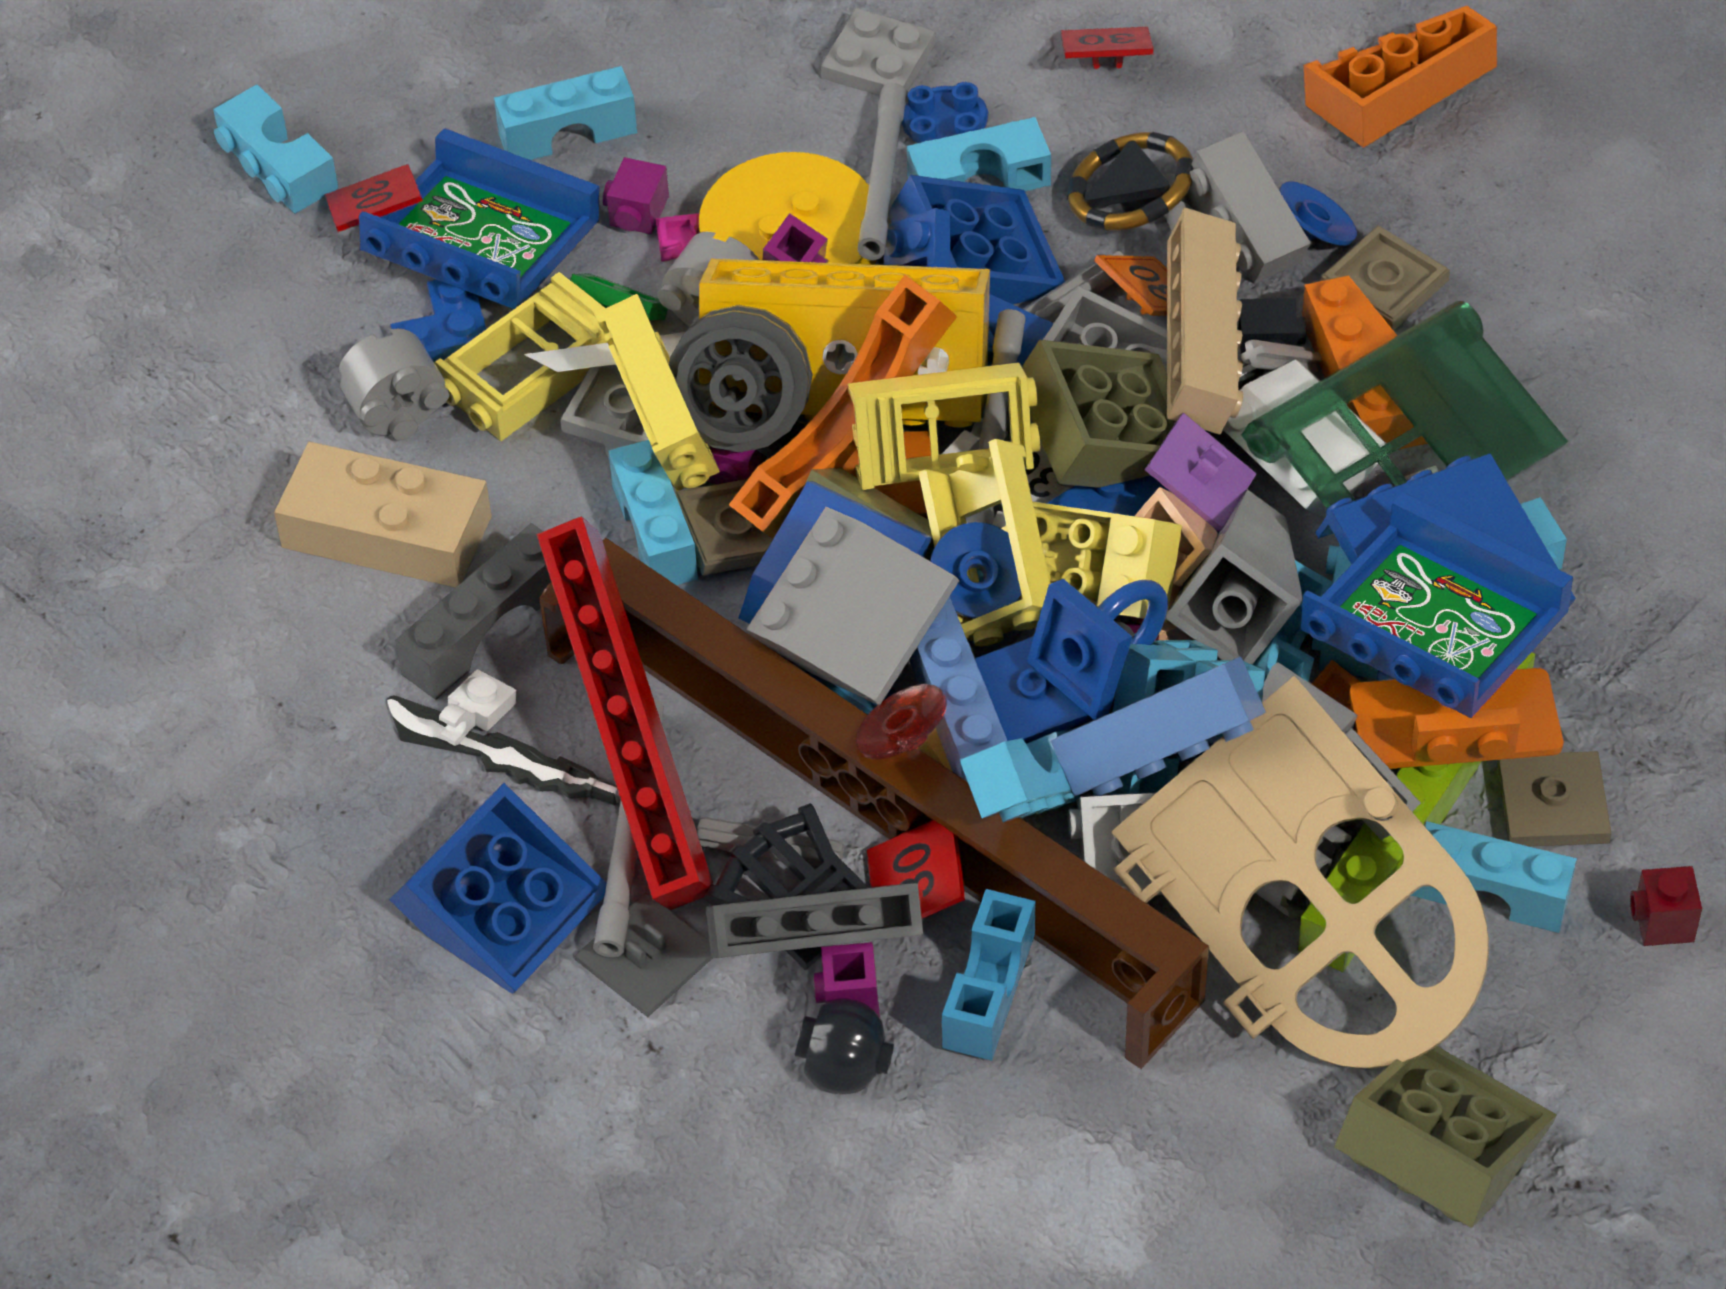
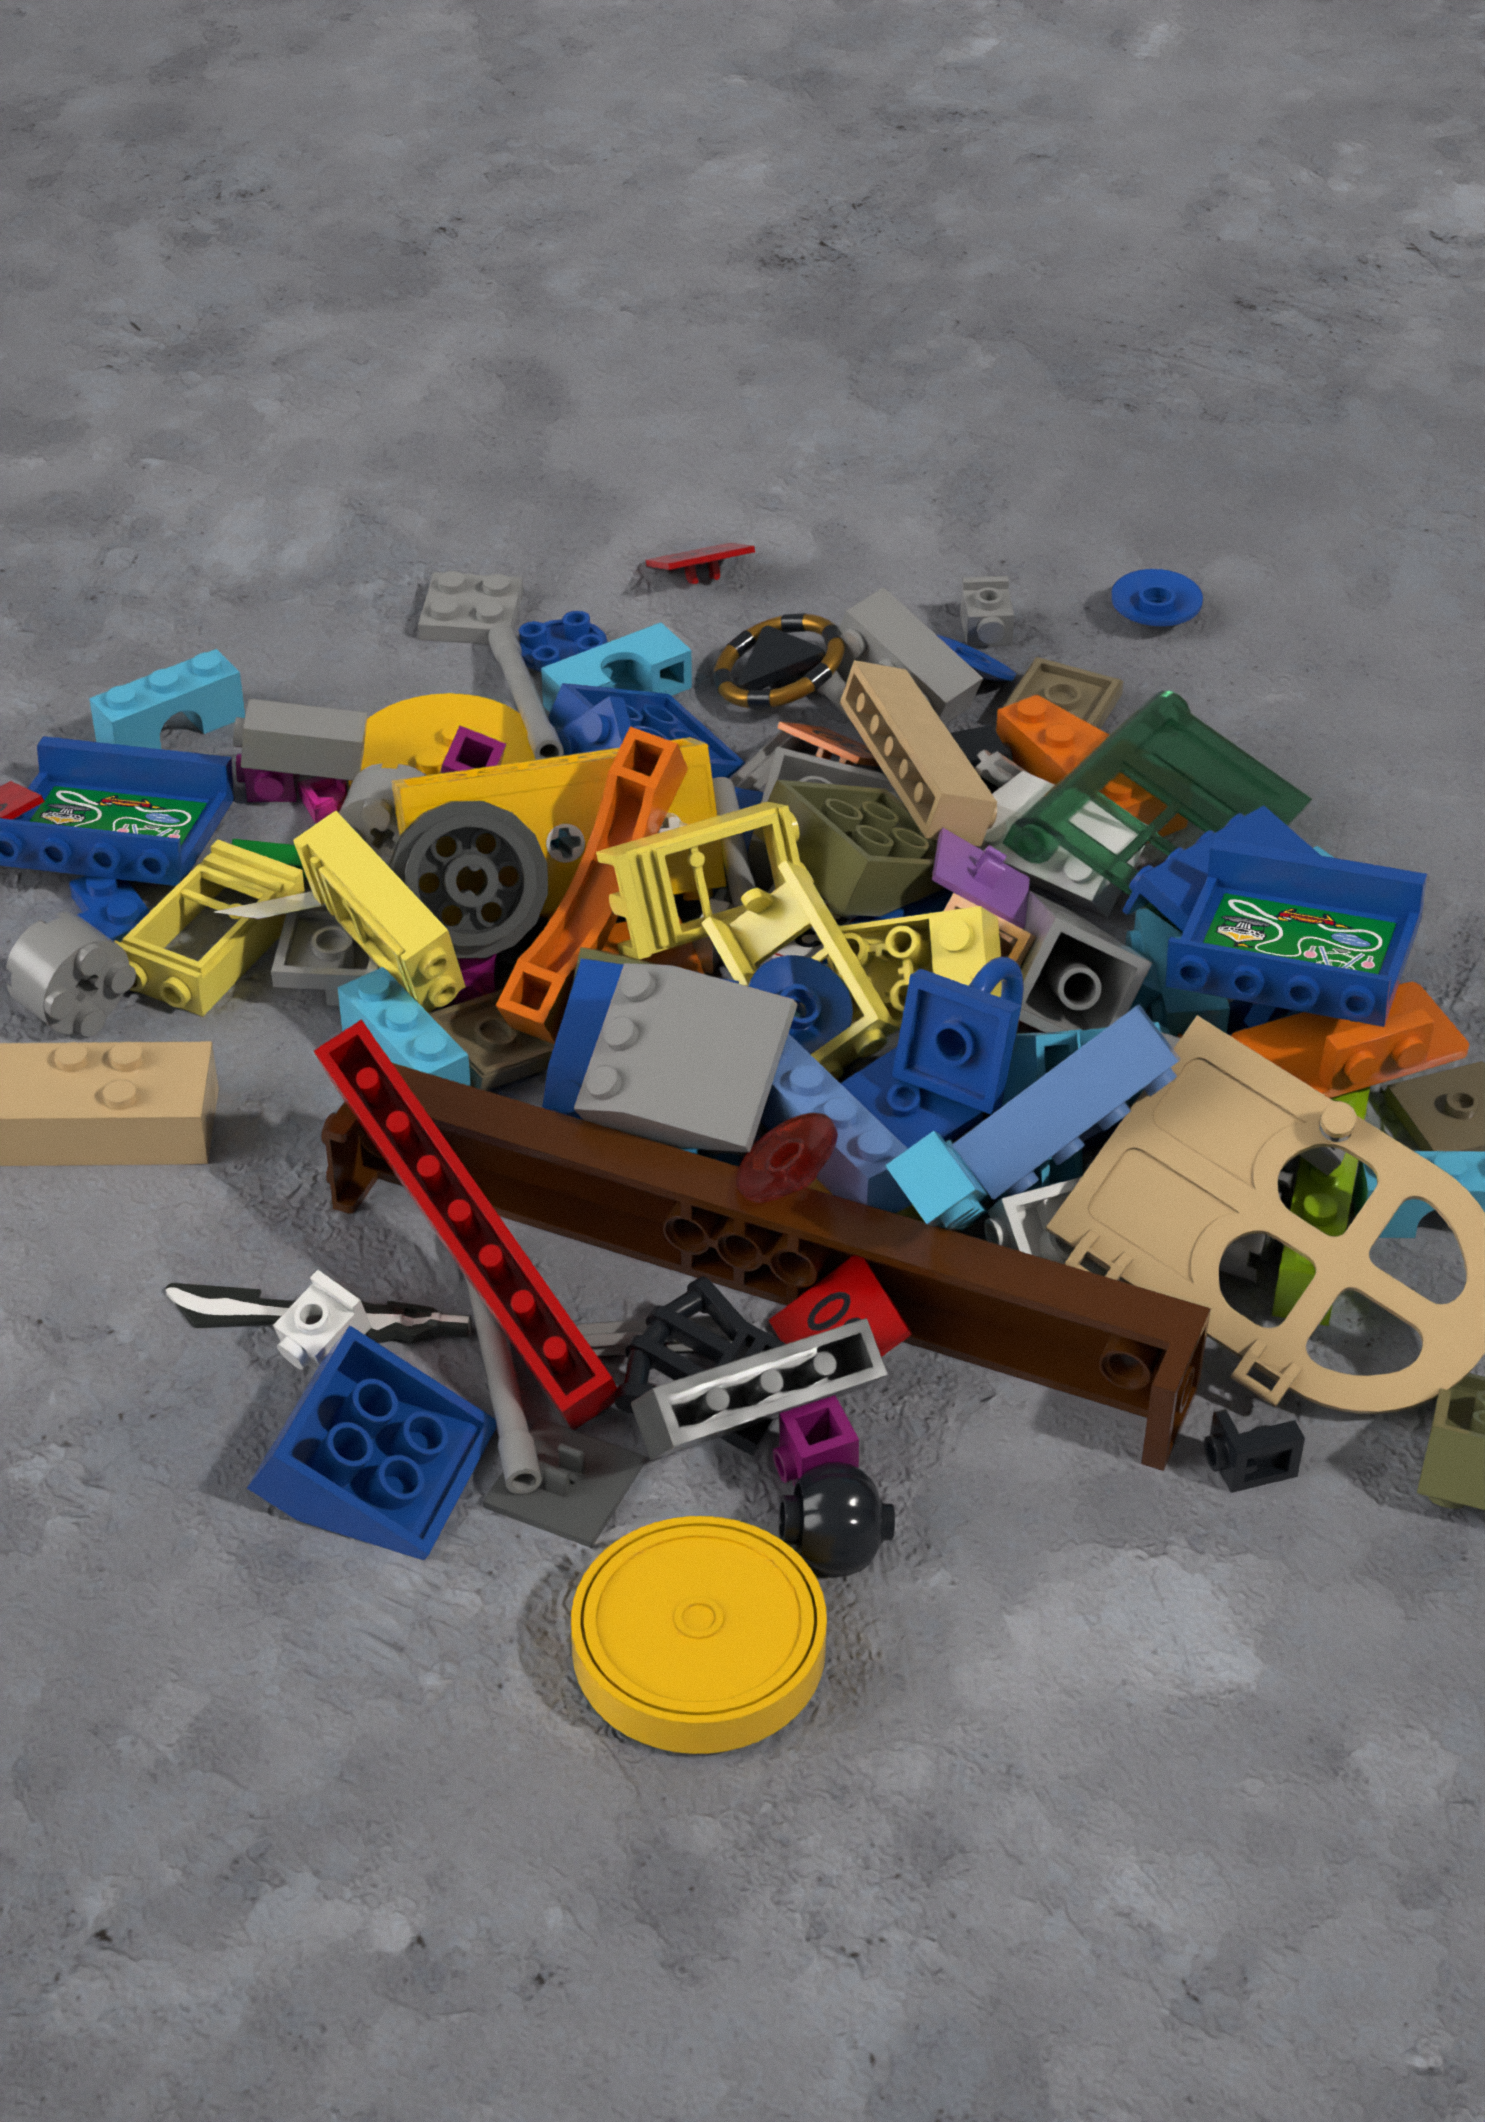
camera: 20 degrees left, 10 degrees down
(444, 640) = (216, 1209): dark grey arch -> none
(476, 702) = (274, 1267): white plate -> none
(490, 765) = (318, 1321): none -> white brick
(660, 186) = (301, 739): none -> light grey brick
(696, 1116) = (698, 1634): none -> yellow brick
(985, 992) = (966, 1407): dark azure arch -> none
(1217, 1078) = (1254, 1456): none -> black bracket
(1355, 162) = (987, 611): none -> light grey brick
(1402, 75) = (998, 530): orange wedge -> none
(1525, 180) = (1157, 597): none -> blue dish

